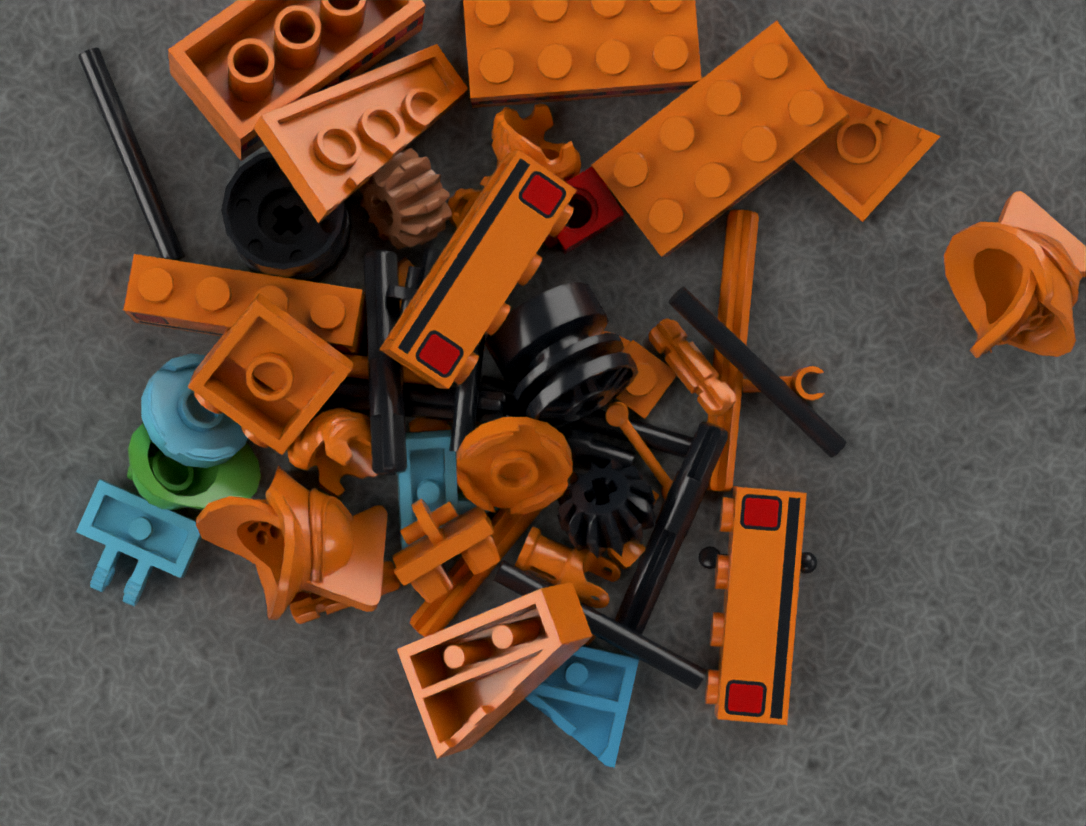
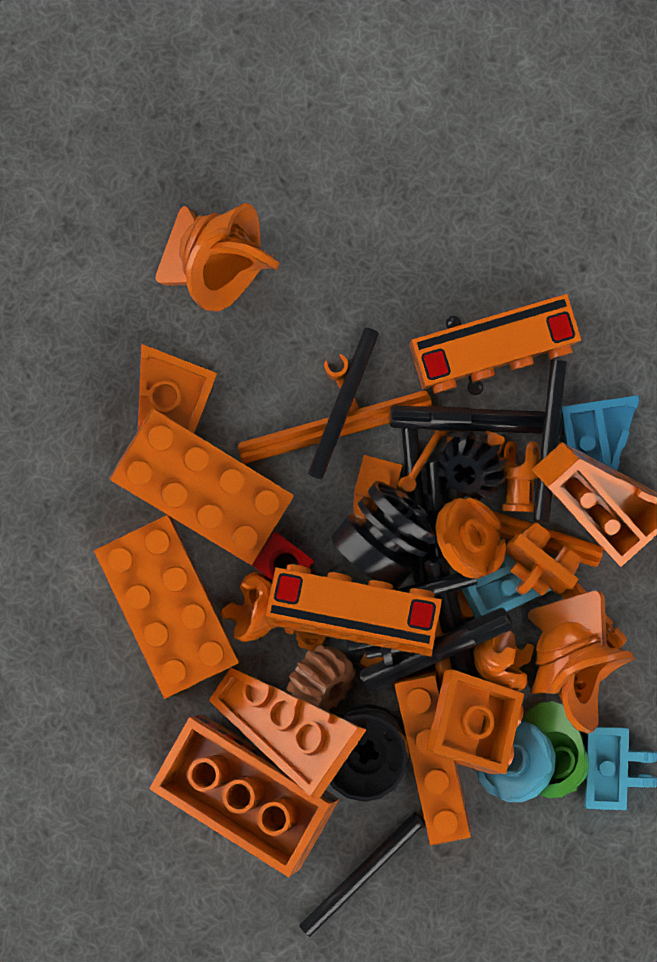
camera: 115 degrees left, 0 degrees up
(692, 367) = (357, 447): orange axle -> none

